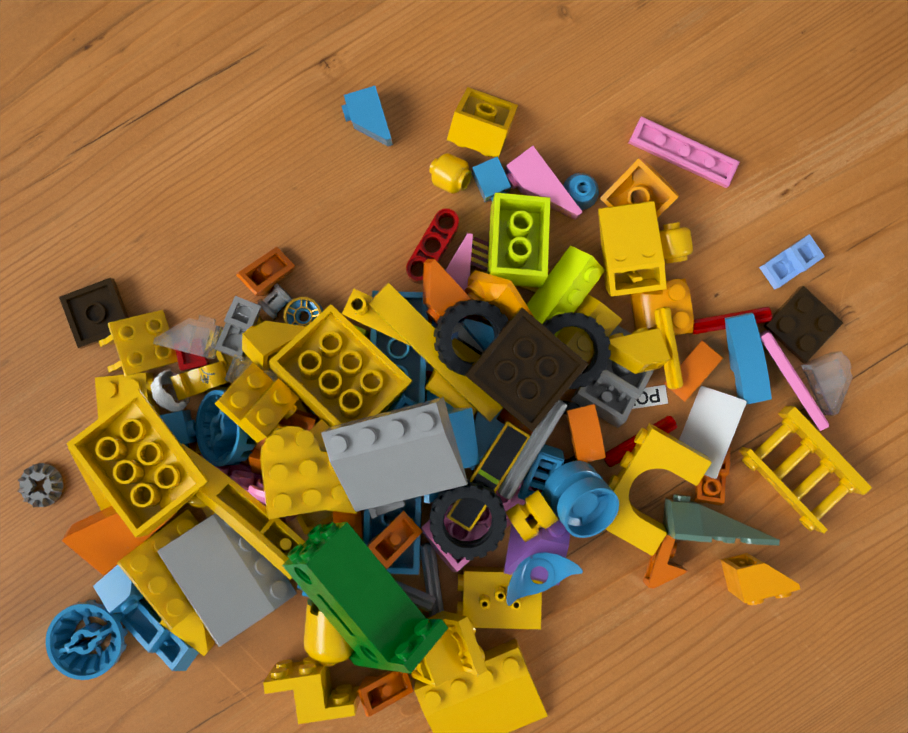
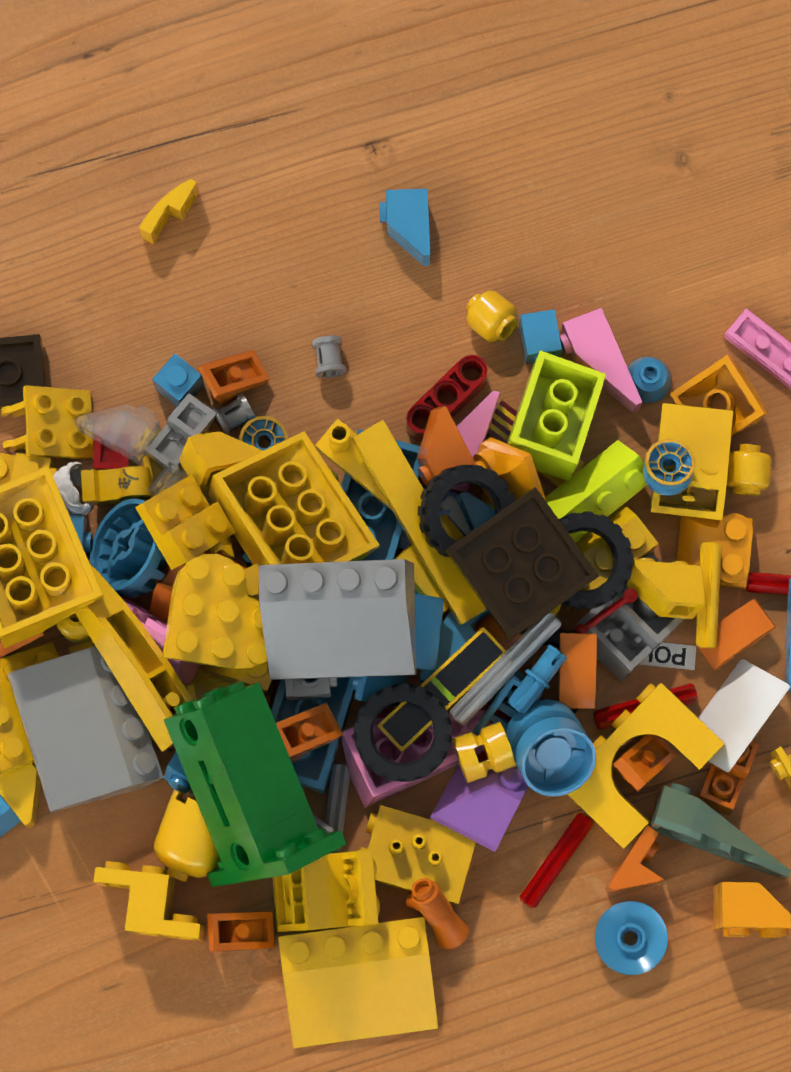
camera: 15 degrees right, 10 degrees down
(185, 146) = (174, 204): none -> yellow slope
(224, 286) = (177, 380): none -> dark azure brick
(335, 237) = (328, 357): none -> light grey bush
(481, 122) = (546, 265): yellow slope -> none
(535, 644) = (446, 925): none -> orange piece
(556, 565) = (499, 818): dark azure piece -> none
(558, 452) = (537, 679): none -> dark azure axle
(581, 400) = (629, 596): none -> red hinge
(602, 573) = (556, 860): none -> red axle
(612, 250) = (667, 453): none -> dark azure wheel
(650, 488) = (644, 761): none -> orange slope
(681, 626) = (650, 934): none -> dark azure dish

